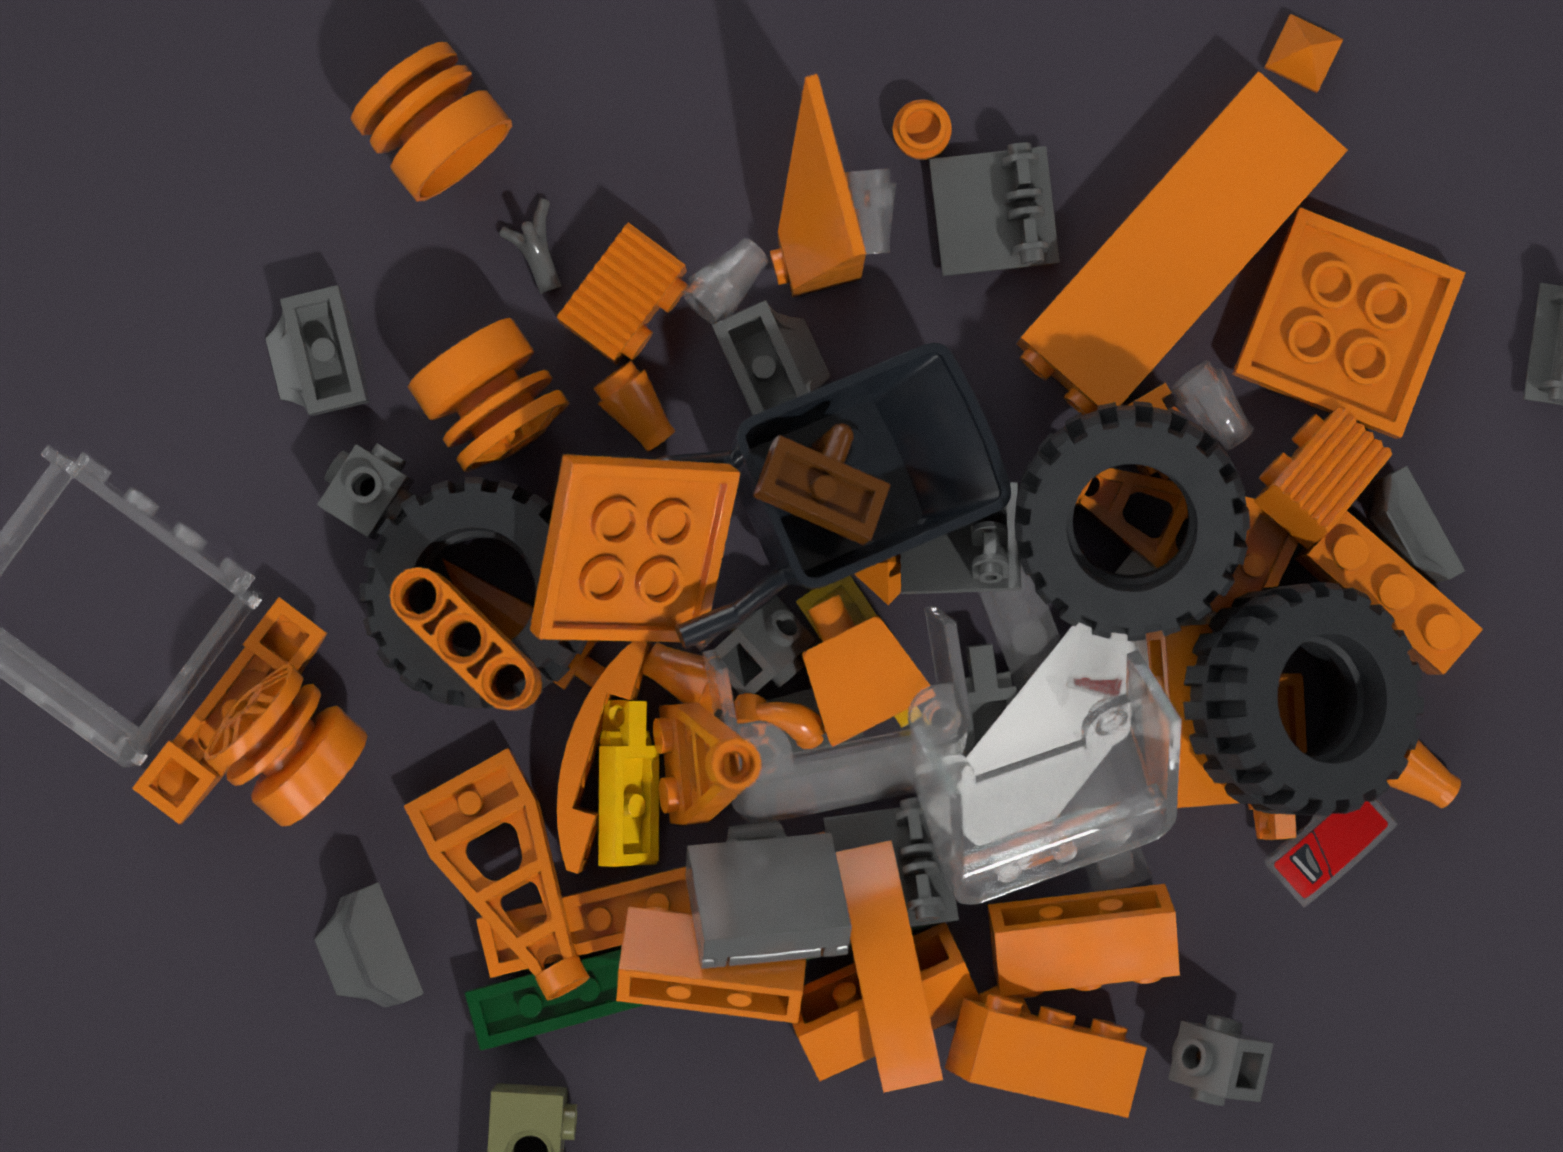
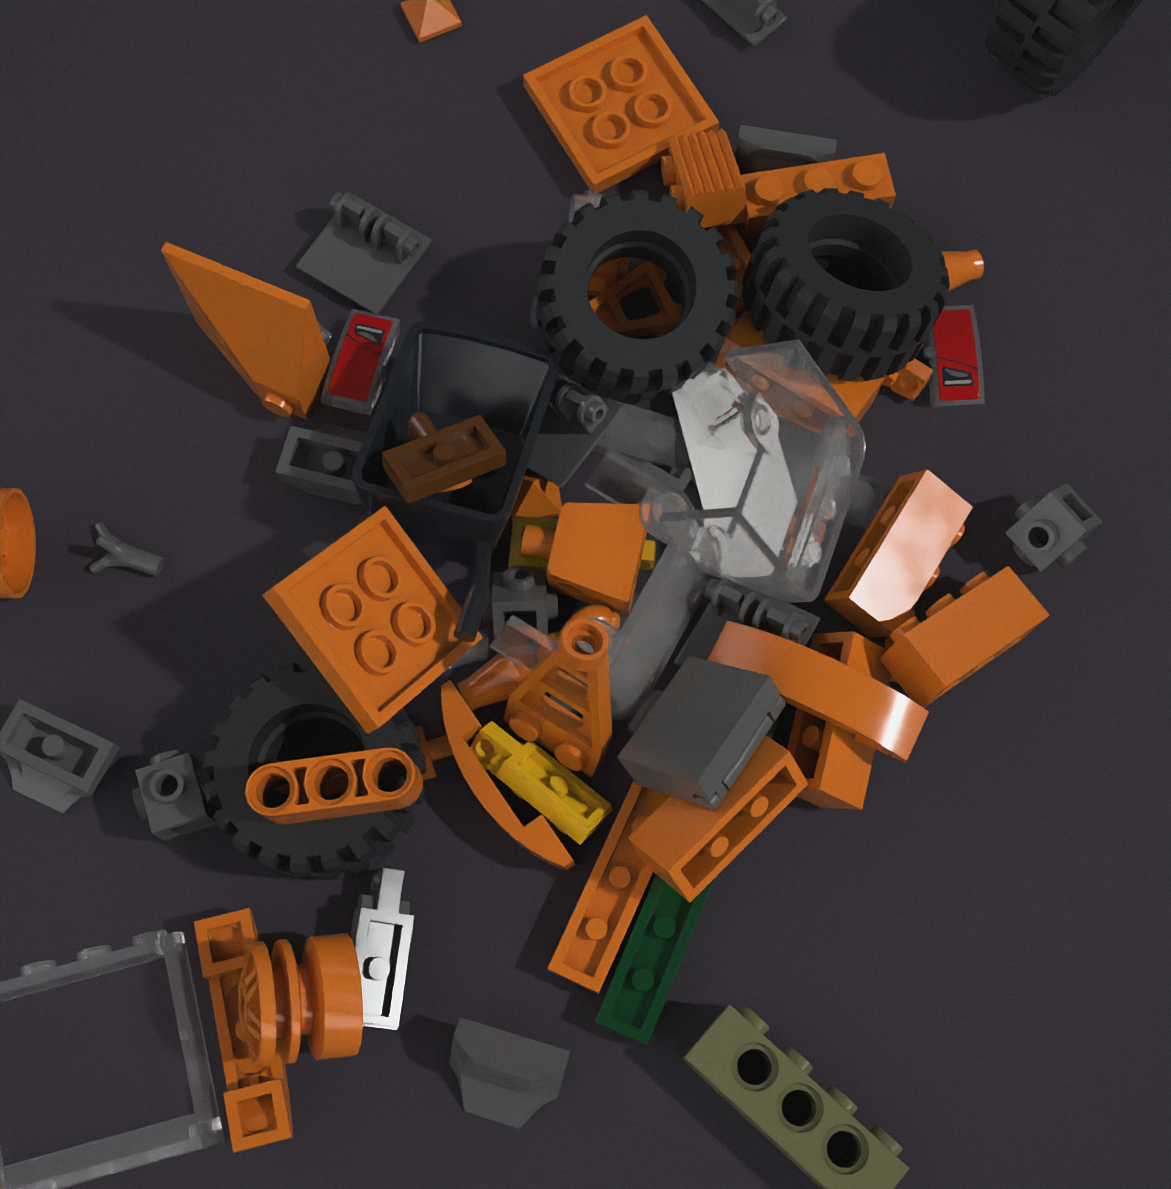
camera: 50 degrees left, 15 degrees down
(388, 765) = (382, 945): none -> hinge
(474, 805) = (463, 907): orange plate -> none
(484, 389) = (184, 651): orange wheel -> none
(624, 295) = (205, 518): orange brick -> none
(634, 405) = (272, 564): orange cone -> none
(722, 284) = (256, 448): clear cone -> none
(883, 302) = (360, 361): none -> slope
(922, 129) = (272, 256): orange plate -> none
(1180, 247) = (485, 160): orange brick -> none

